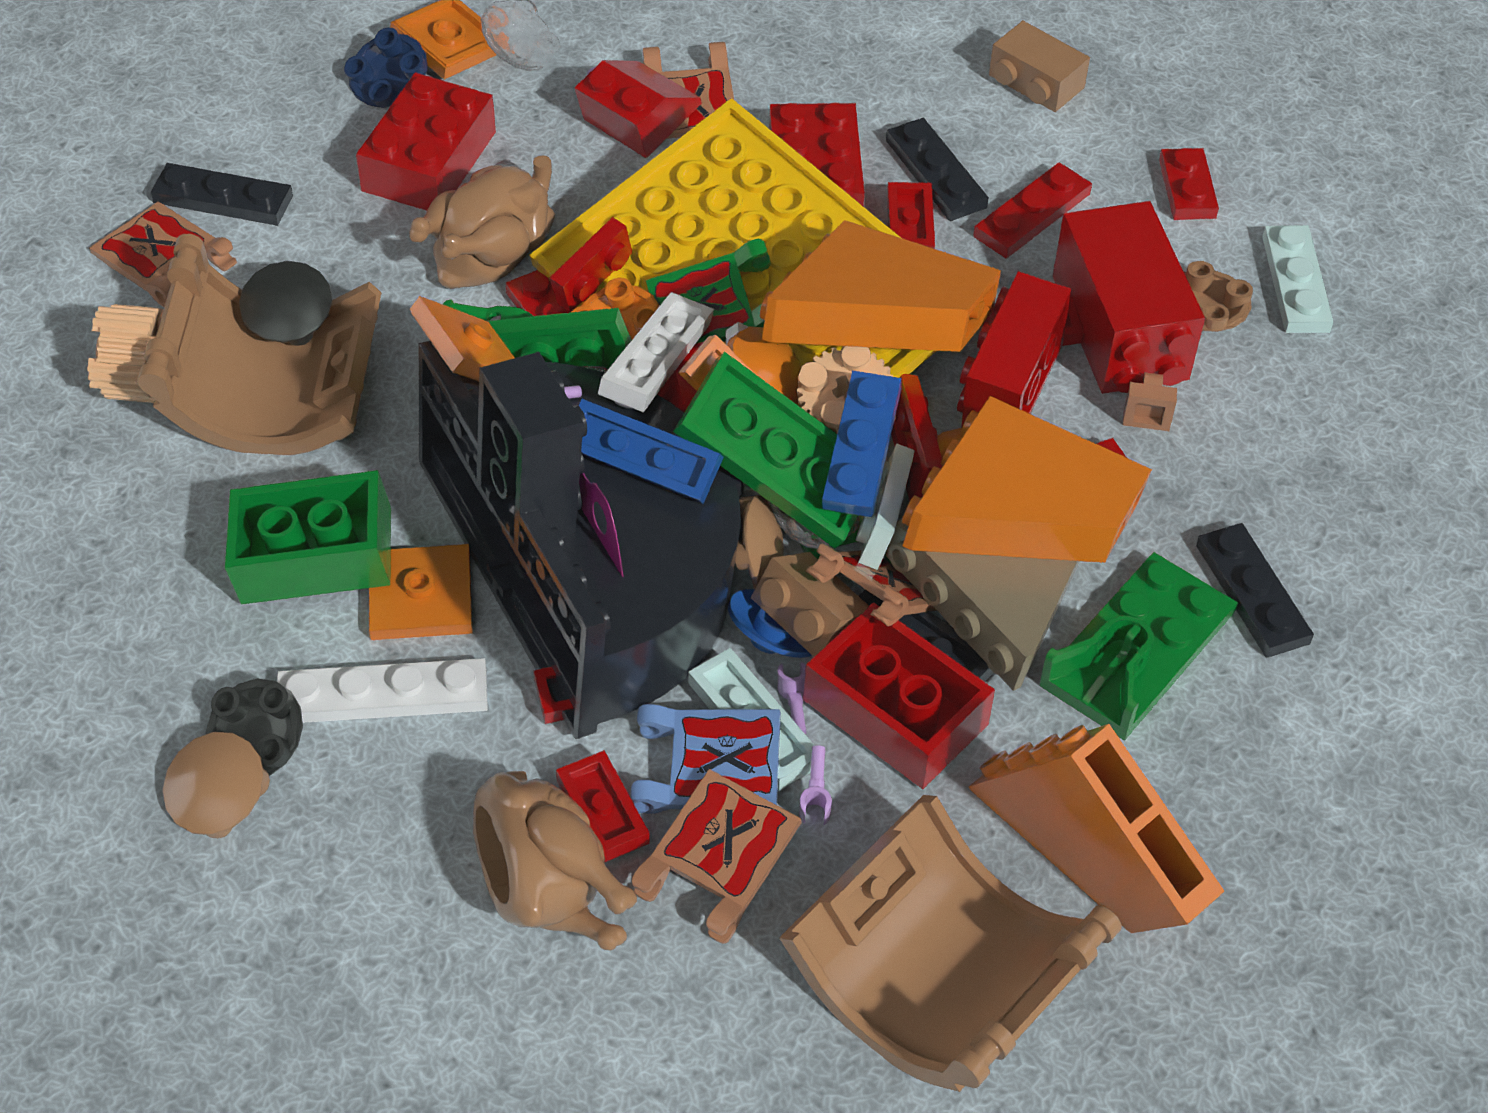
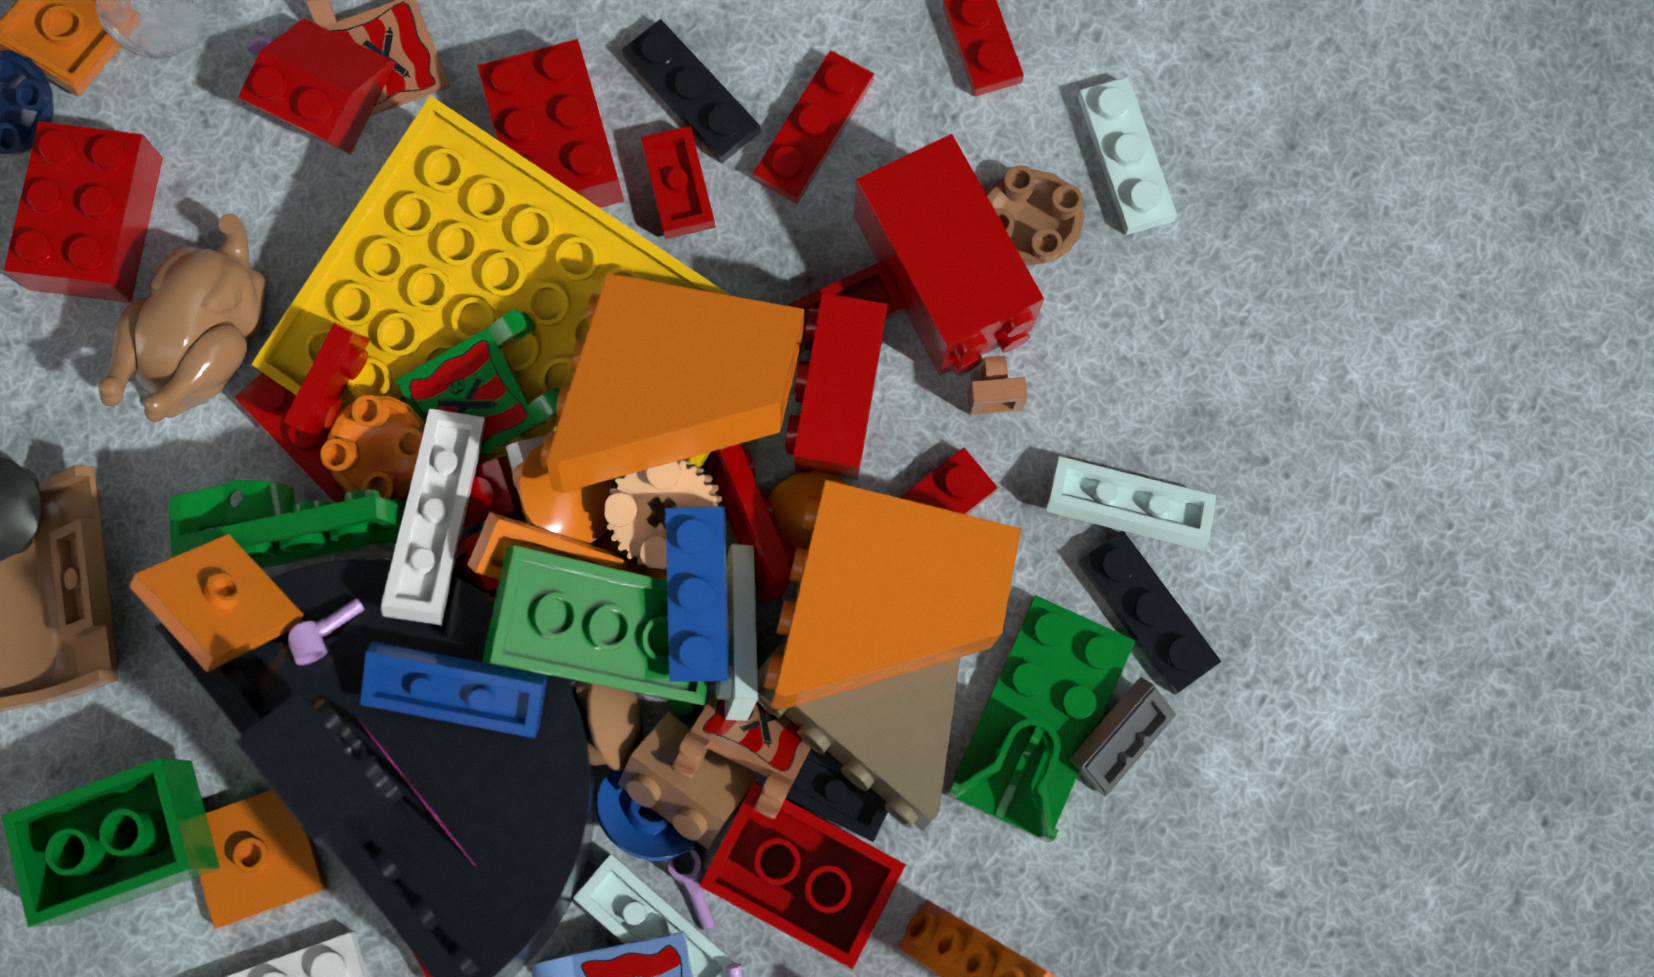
camera: 15 degrees left, 25 degrees up
(1211, 666) = (1122, 736): none -> dark grey plate
(1253, 504) = (1131, 503): none -> light aqua plate

